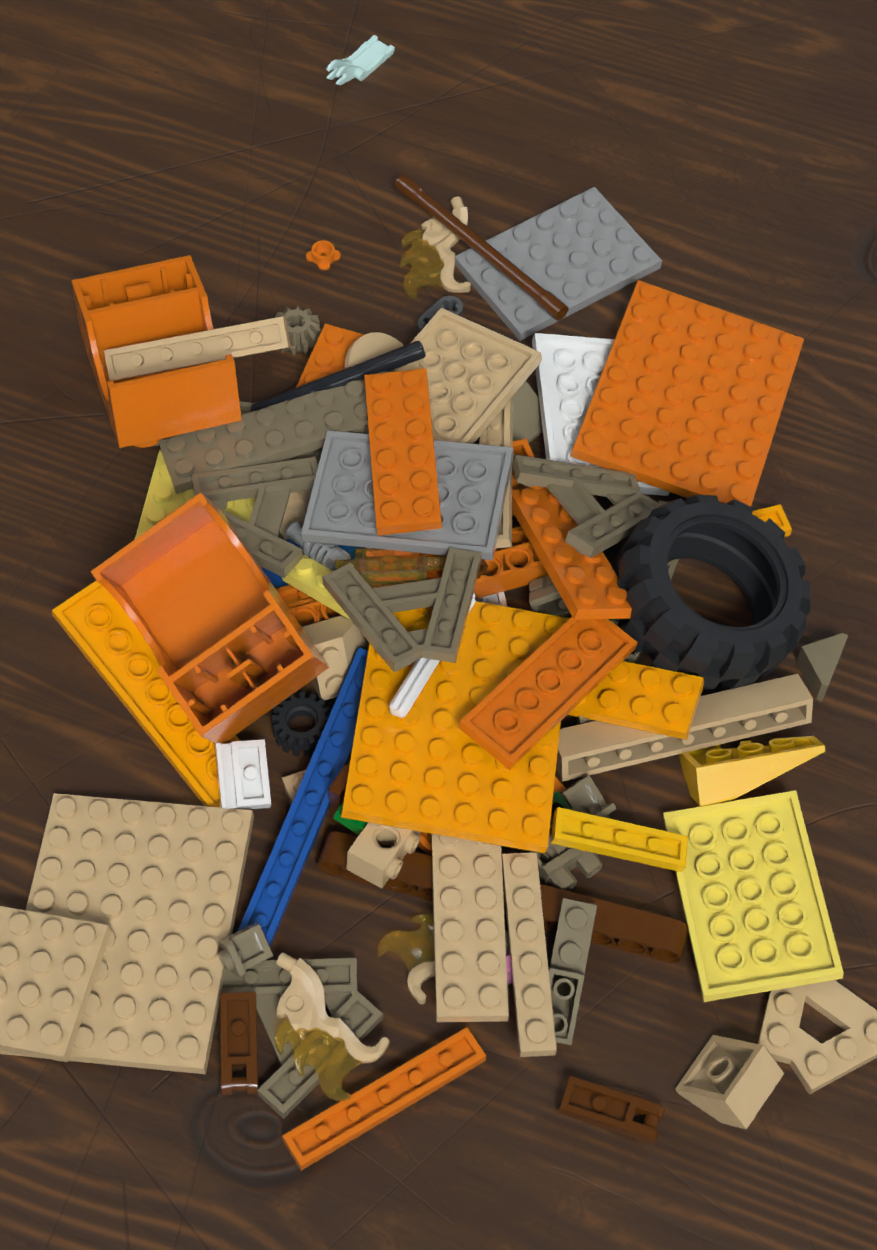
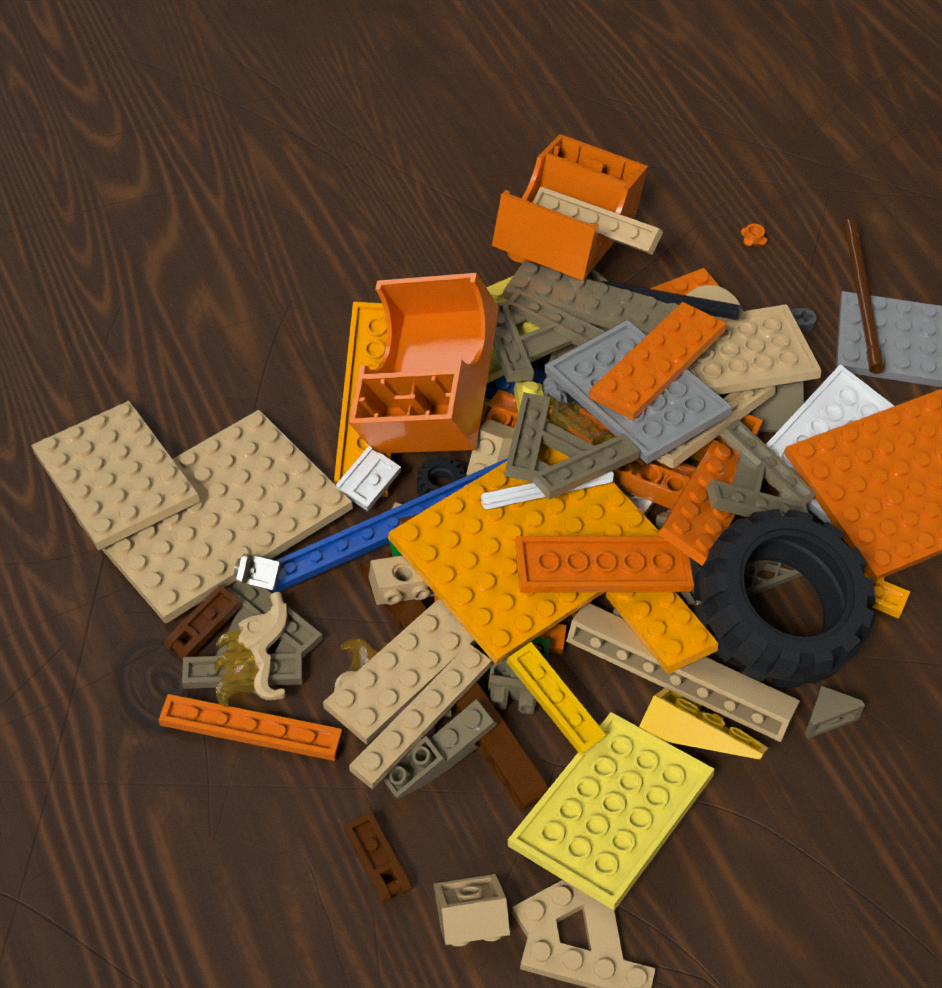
camera: 45 degrees right, 5 degrees down
(302, 329) = (685, 261): dark tan gear -> none
(360, 63) = (903, 146): light aqua arm -> none
(431, 254) = (829, 281): piece -> none
(586, 798) = (567, 663): dark tan bracket -> none

